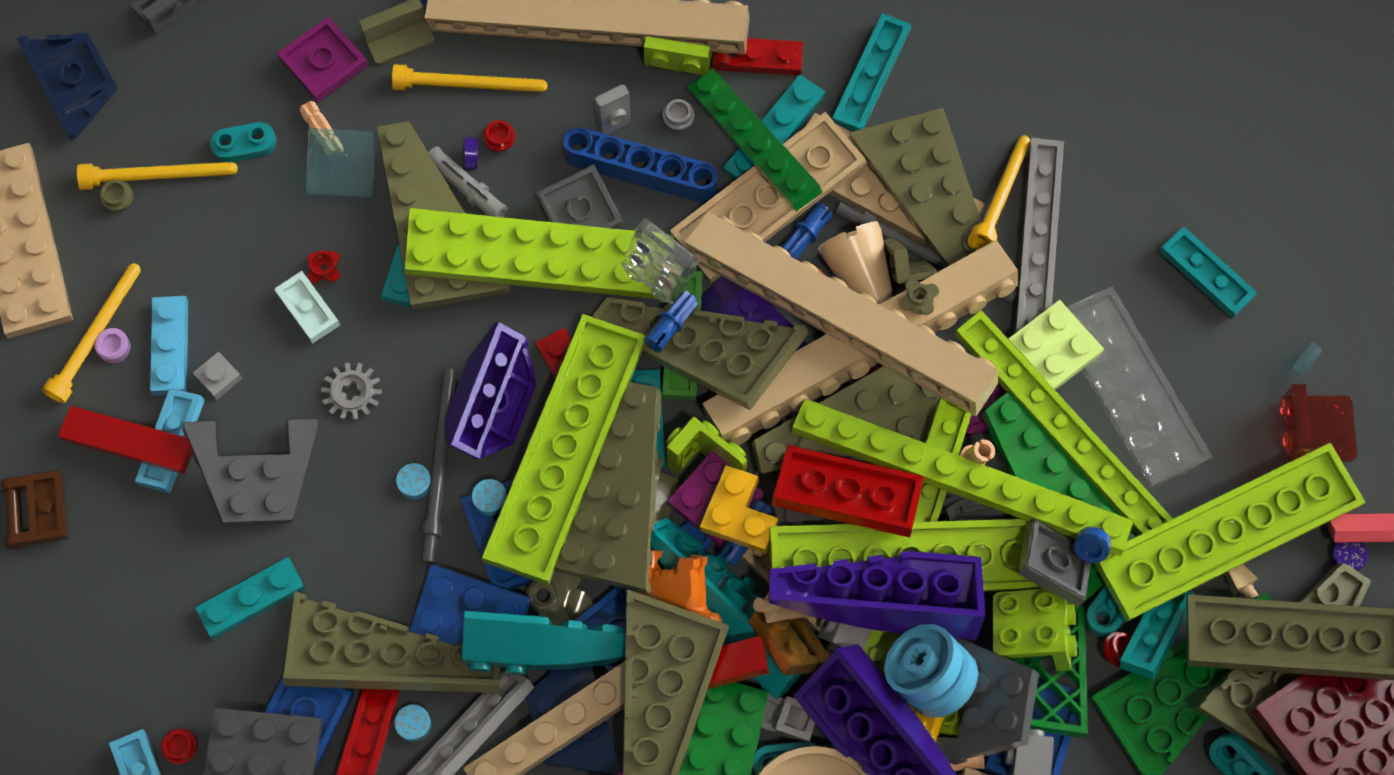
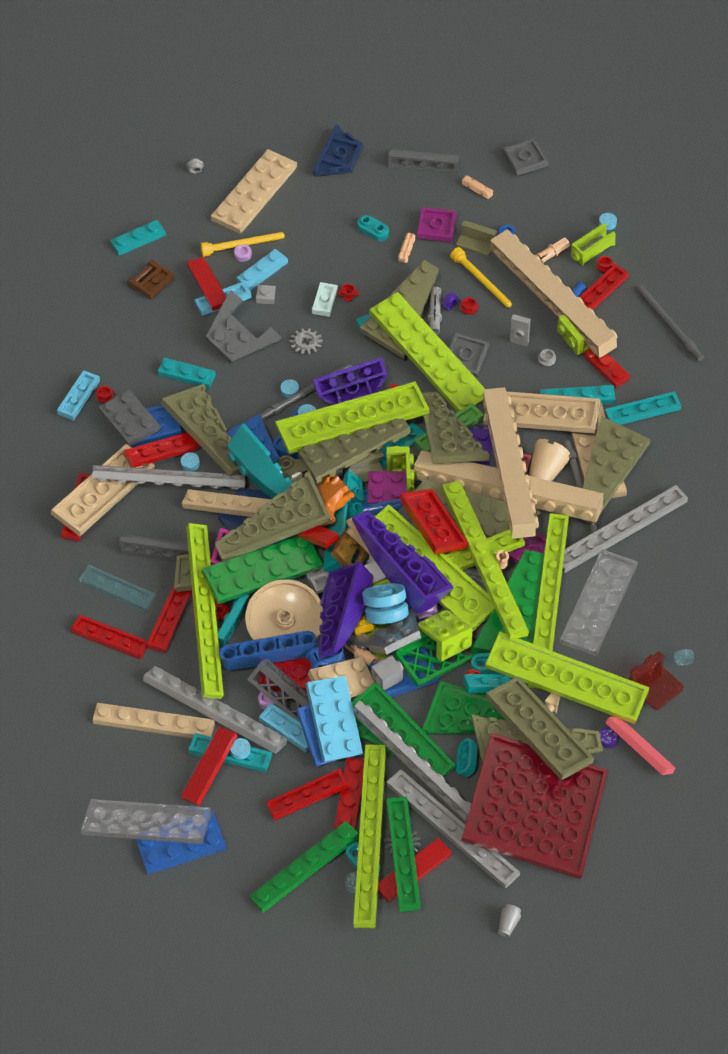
camera: 50 degrees right, 15 degrees down
(91, 176) = (304, 191): yellow piece -> none
(116, 195) = (305, 205): olive plate -> none
(340, 162) = (397, 262): clear light blue plate -> none
(629, 153) = (508, 359): blue beam -> none
(659, 262) = (461, 385): clear plate -> none
(671, 321) = (444, 412): blue axle -> none
(729, 512) = (383, 491): yellow plate -> none
(755, 140) = (560, 385): green plate -> none
(807, 230) = (531, 438): blue axle -> none
(901, 268) = (560, 473): olive panel -> none
(919, 306) = (545, 484): olive plate -> none
(985, 231) = (608, 492): yellow piece -> none
(1052, 563) = (479, 615): dark grey plate -> none
(1057, 344) = (585, 558): yellowish green plate -> none
(1092, 545) = (501, 622): blue tile -> none
(1208, 272) = (685, 594): teal plate -> none

